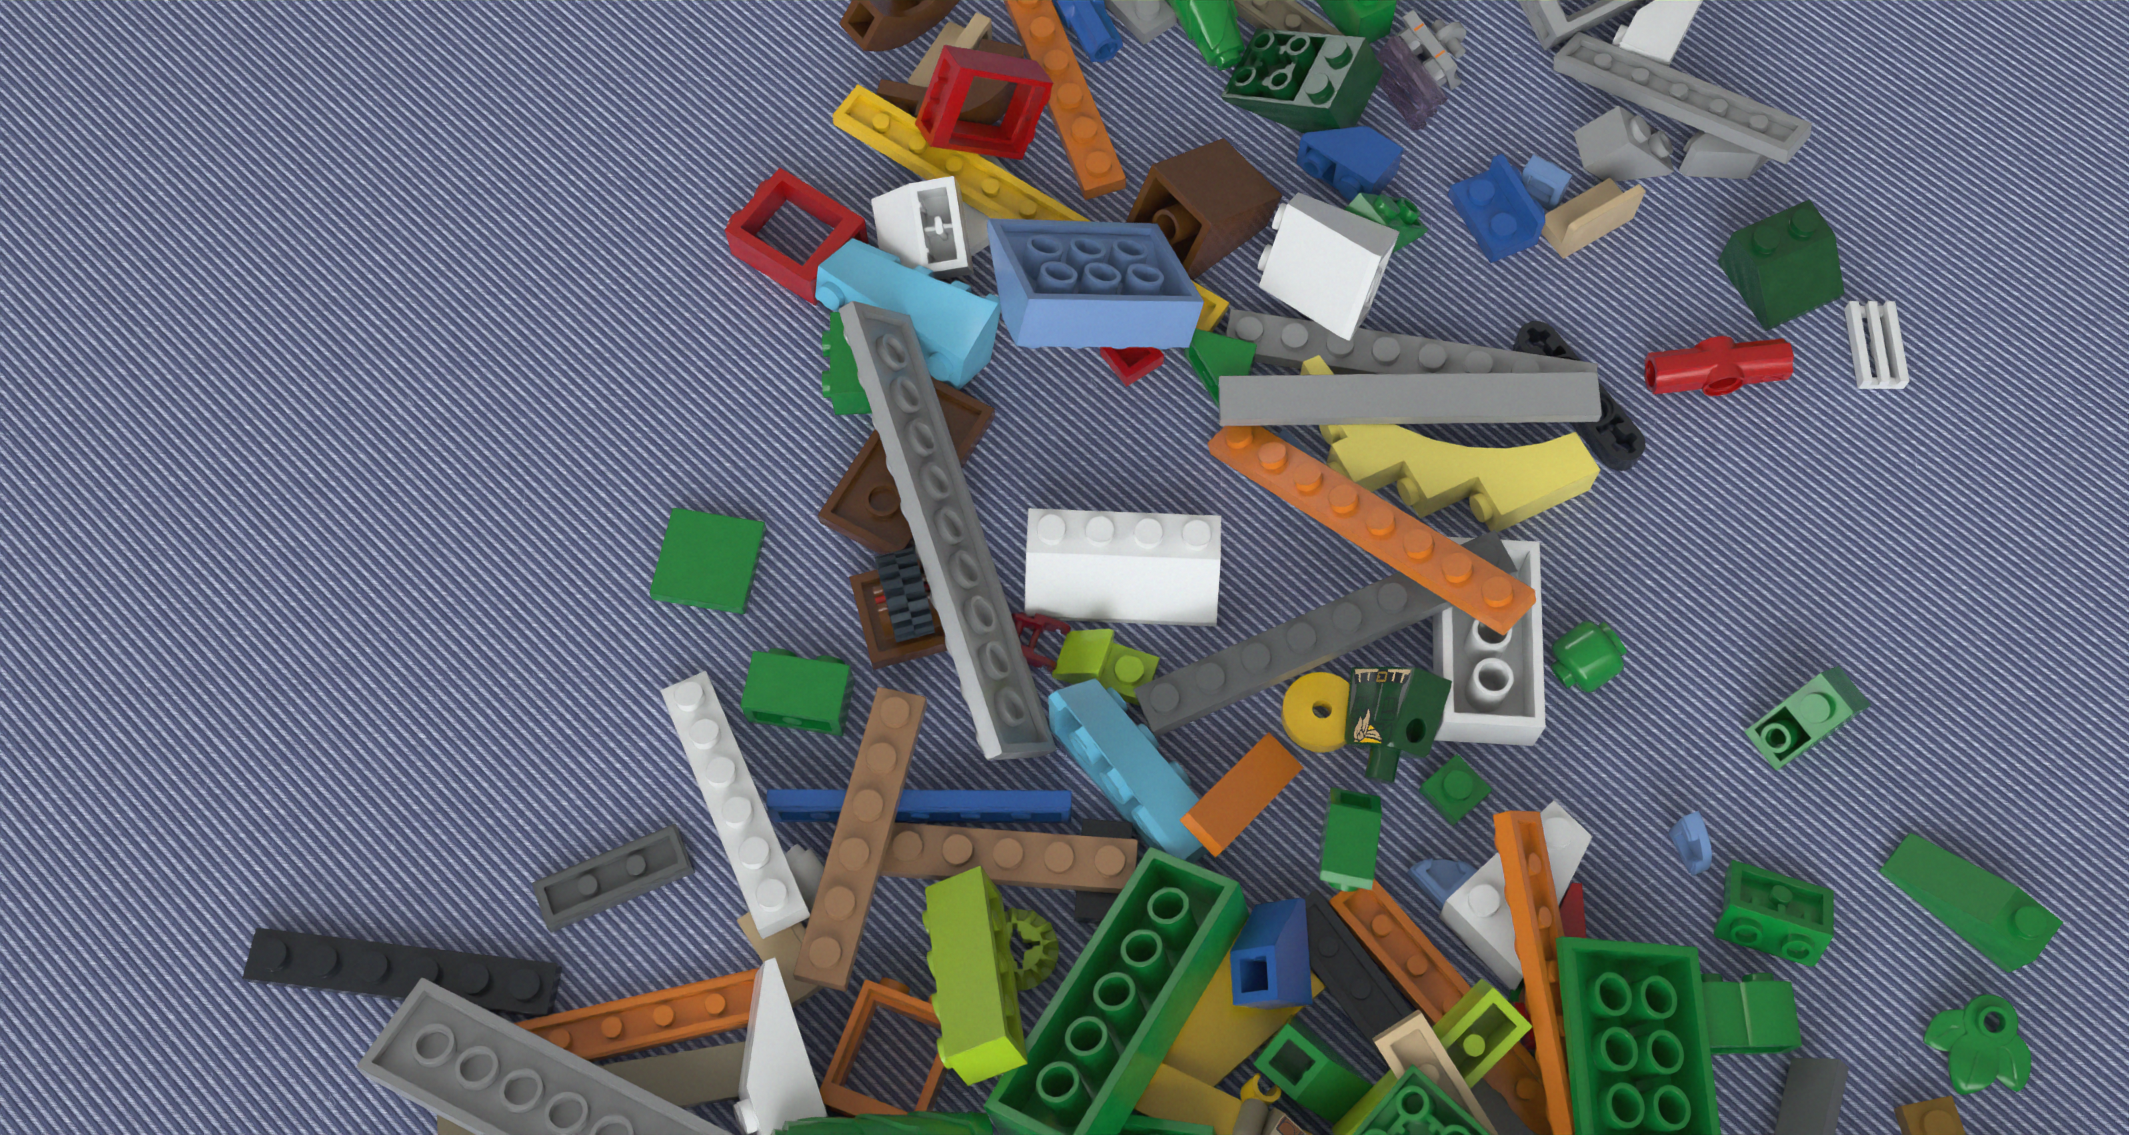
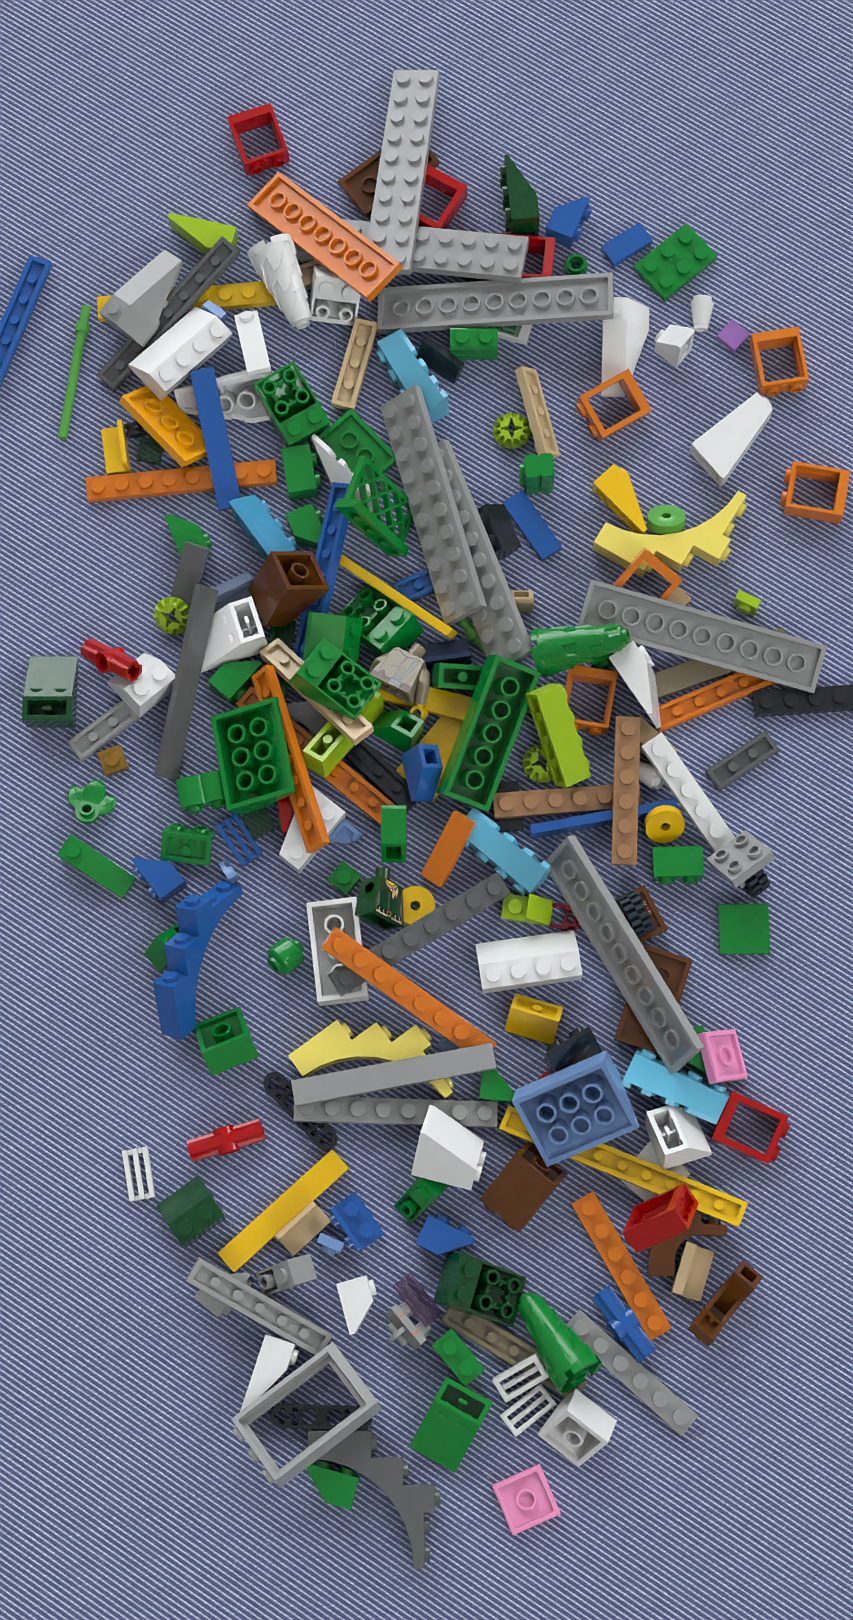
camera: 175 degrees right, 10 degrees up
(672, 652) = (743, 863): none -> light grey plate
(803, 768) = (664, 833): none -> yellow piece
(810, 344) = (722, 1056): none -> bright pink tile
(1075, 393) = (578, 1047): none -> black slope
(1128, 473) = (533, 1018): none -> yellow panel
(1510, 98) = (356, 1300): none -> white slope
(1619, 249) = (283, 1210): none -> yellow tile
(1619, 924) = (259, 823): none -> clear green tile
(1679, 894) = (227, 823): none -> blue tile
(1713, 528) = (225, 1041): none -> green slope
(1795, 670) = (184, 954): none -> blue arch
(1835, 854) = (162, 877): none -> blue slope

